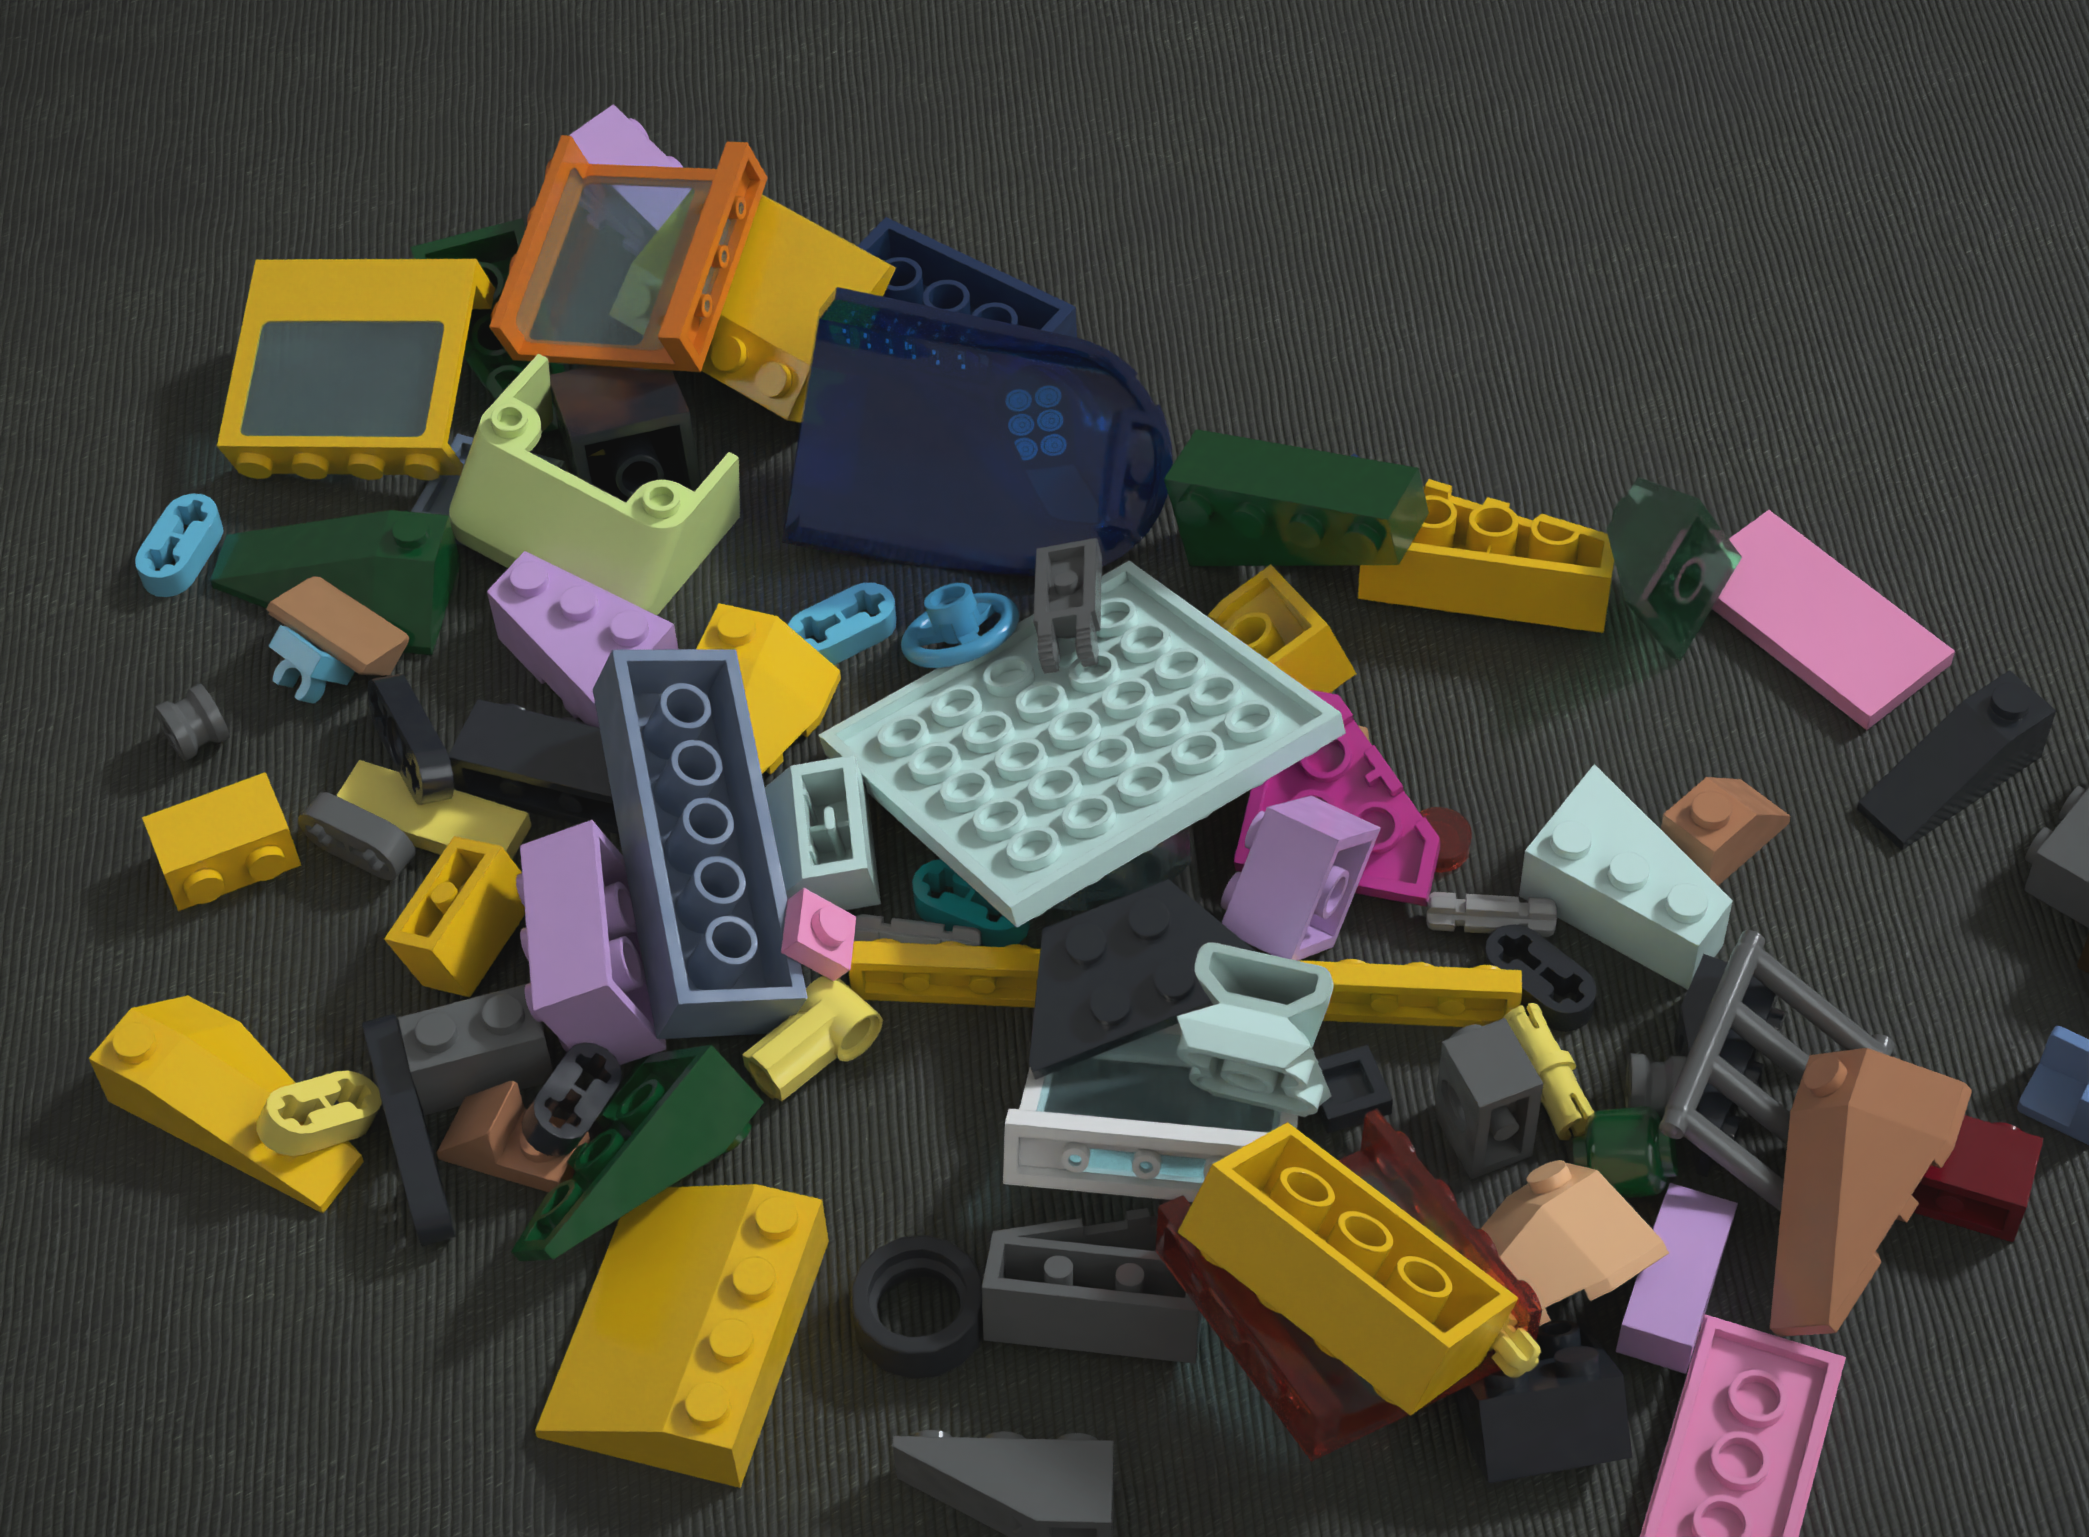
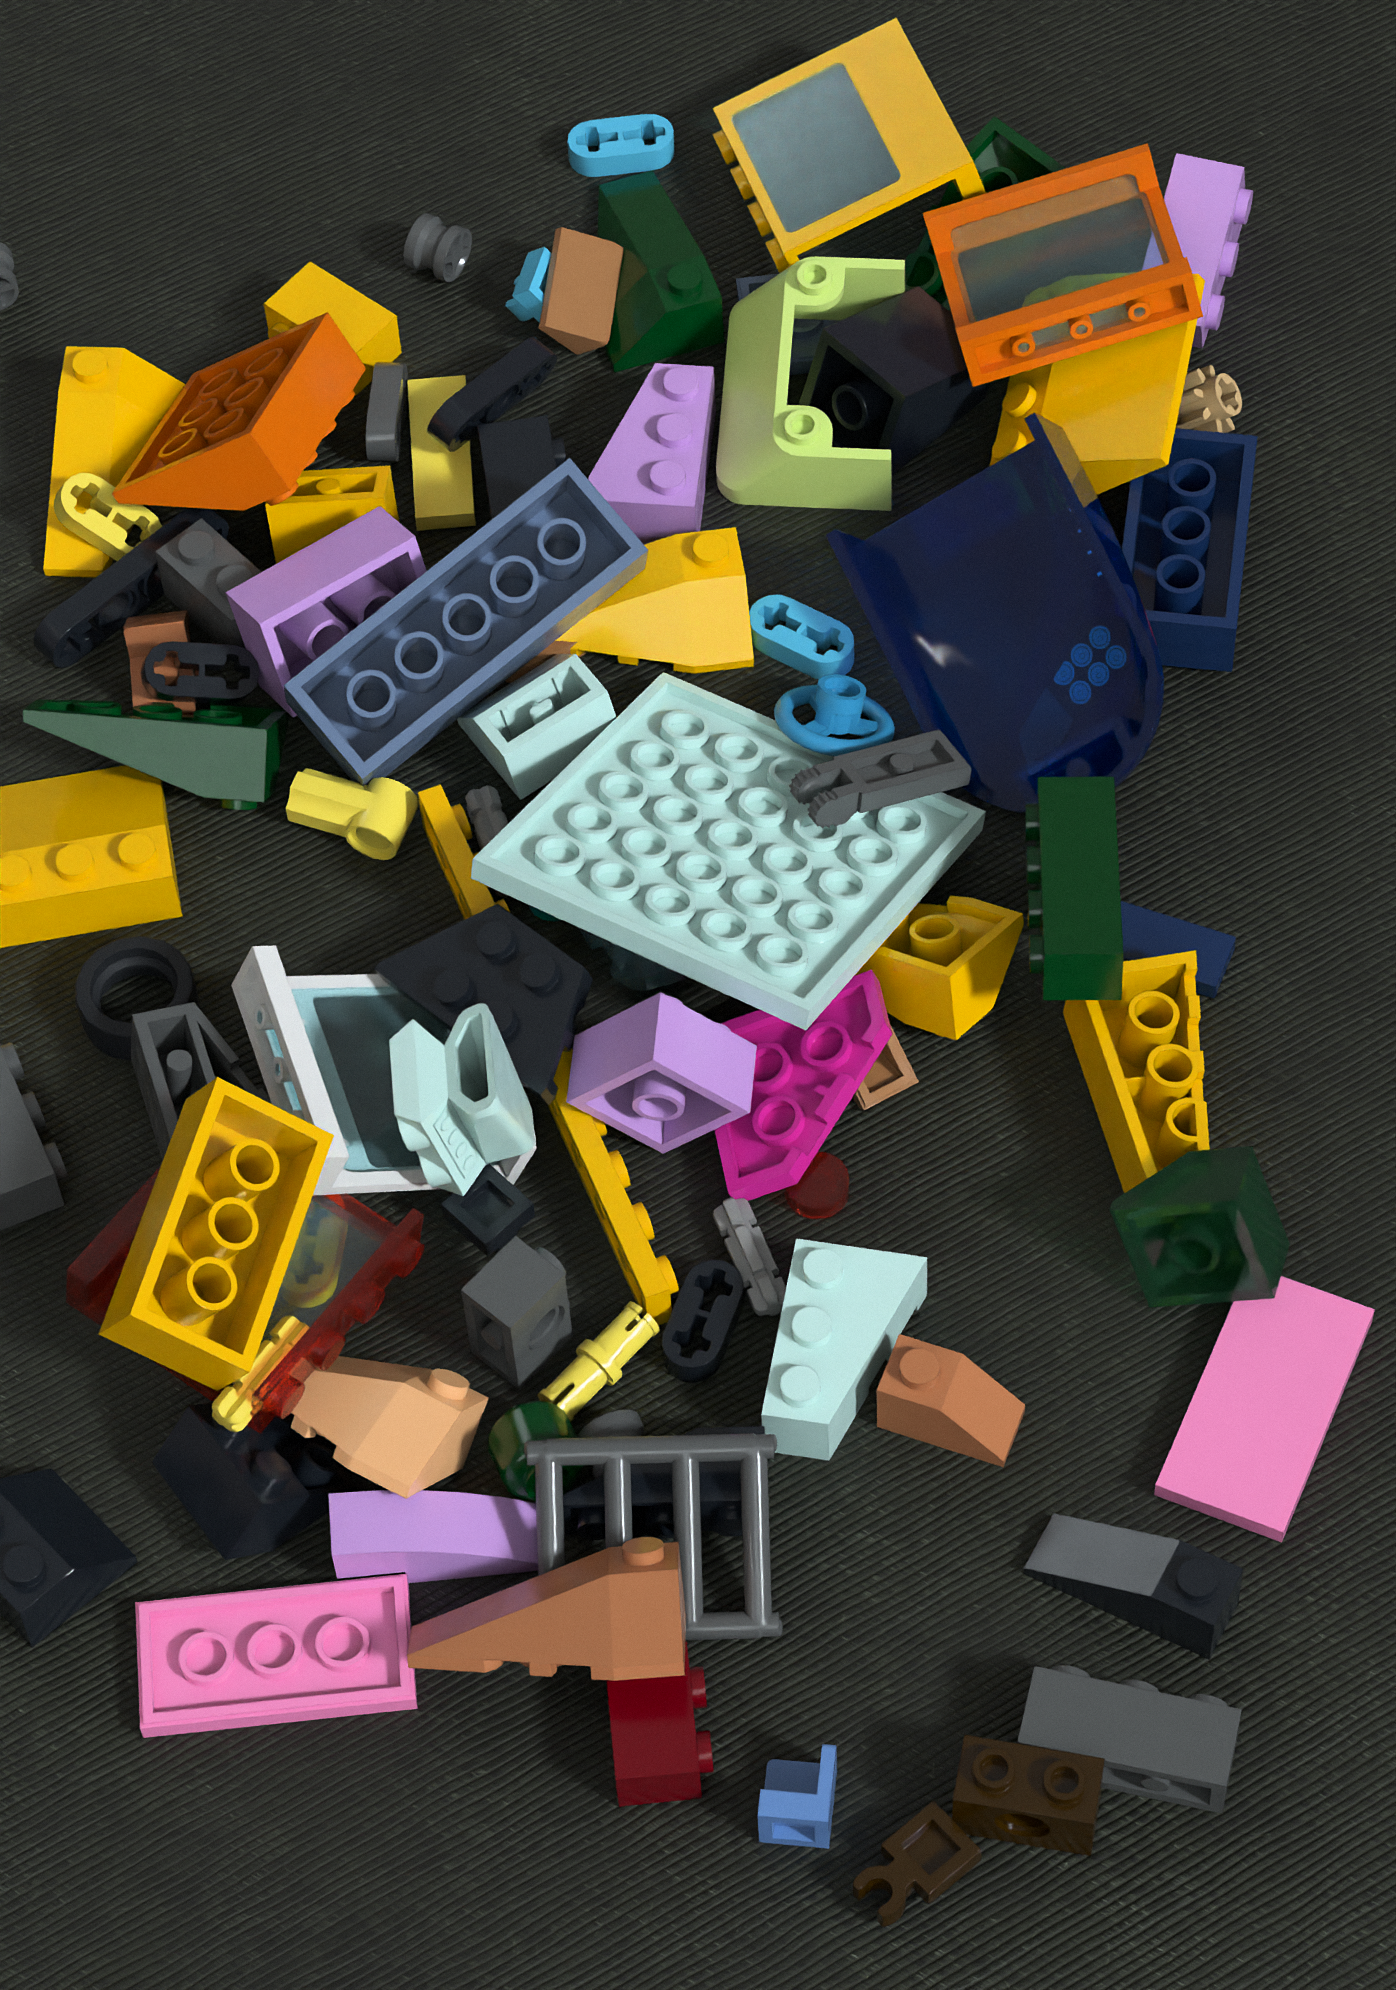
camera: 65 degrees right, 5 degrees up
(310, 940) = (247, 423): none -> orange slope
(818, 934) = (423, 755): bright pink plate -> none

